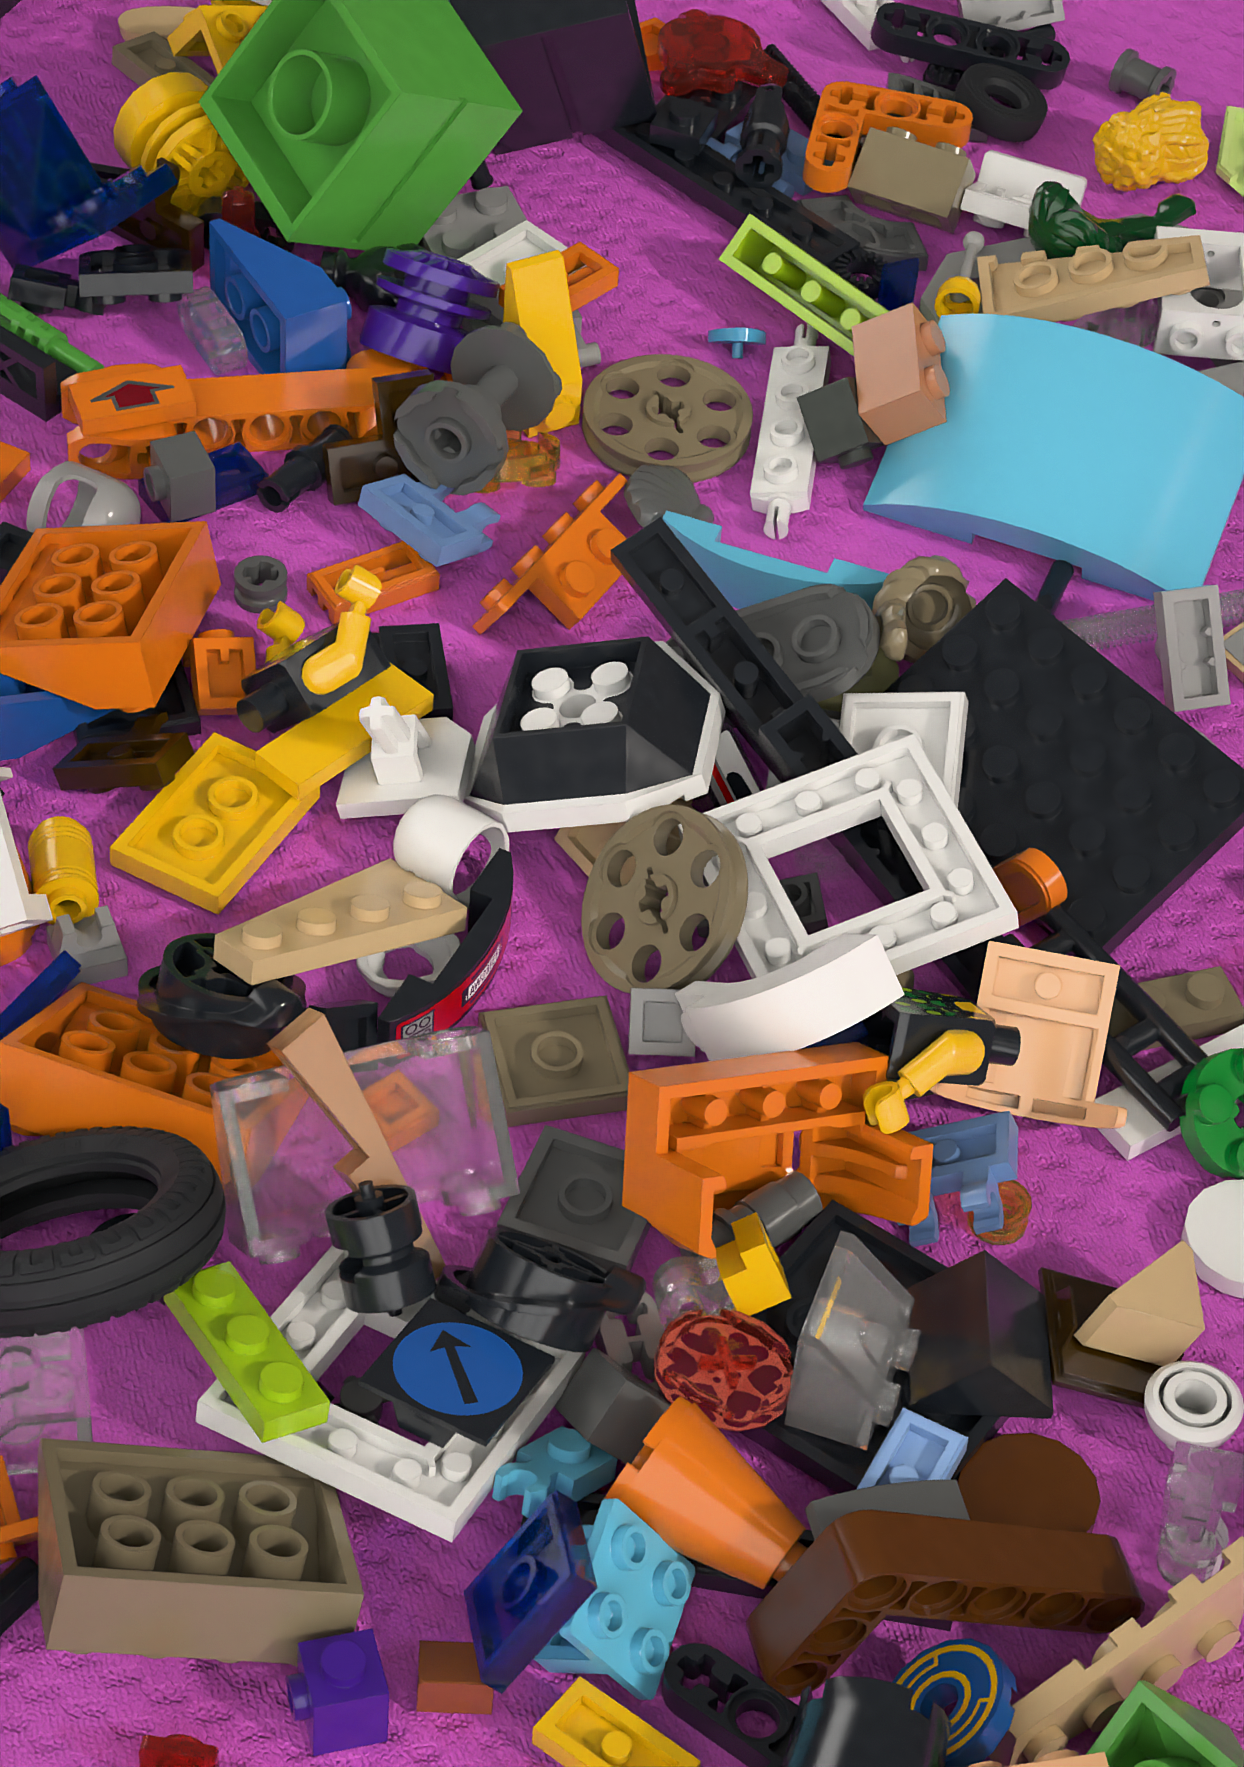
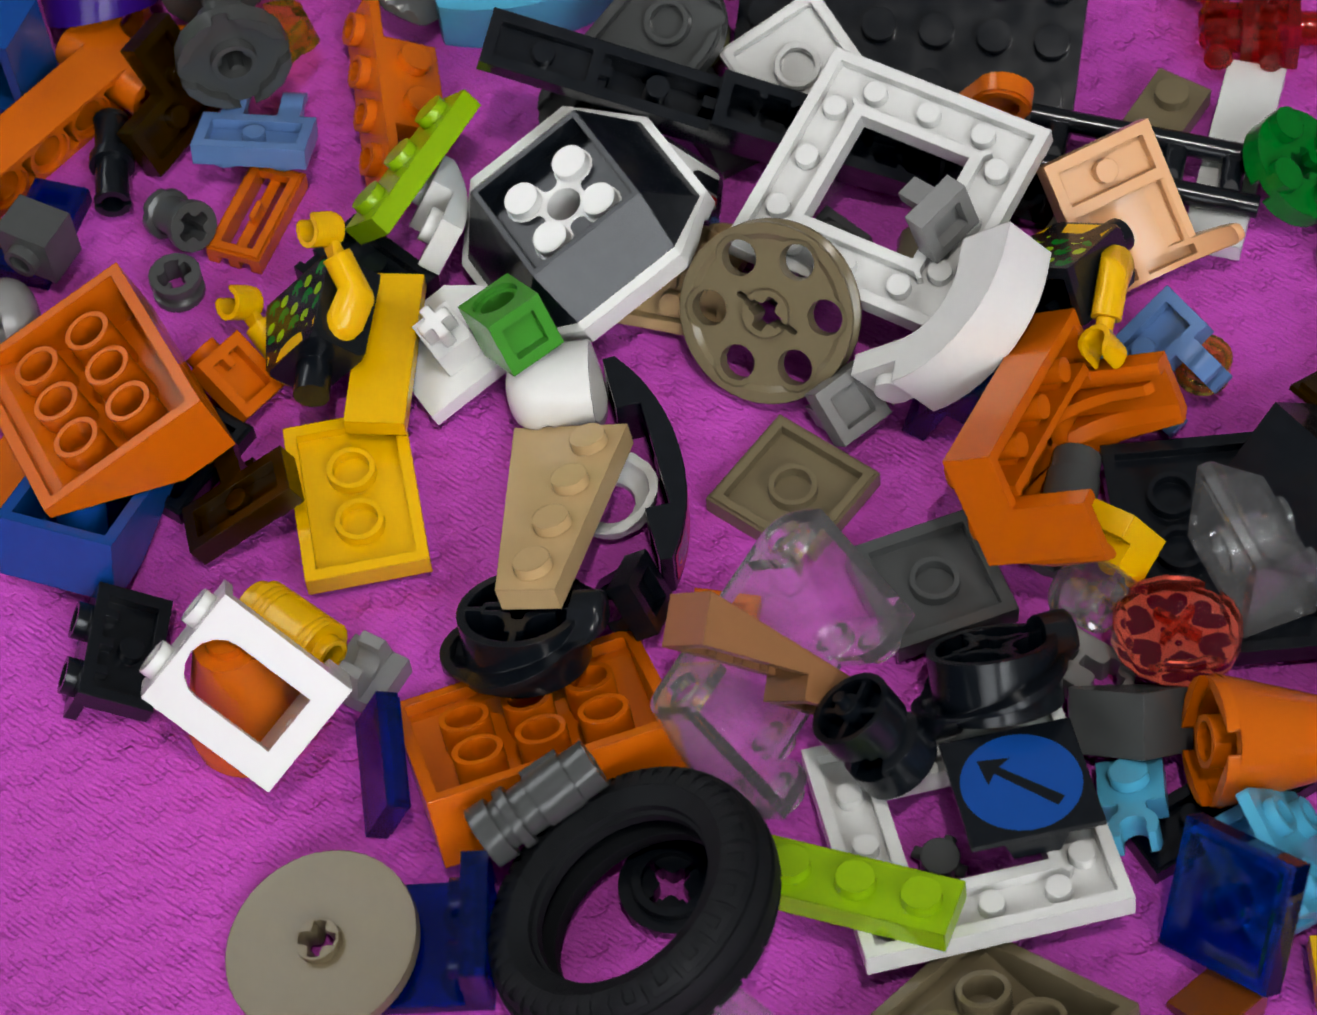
camera: 30 degrees left, 10 degrees up
(88, 1100) = (543, 797): none -> dark grey axle
(304, 557) = (184, 221): none -> dark grey bush
(441, 763) = (511, 324): none -> bright green brick
(489, 668) = (440, 214): none -> white slope
(507, 607) = (410, 165): none -> lime plate
(848, 904) = (938, 215): none -> light grey tile

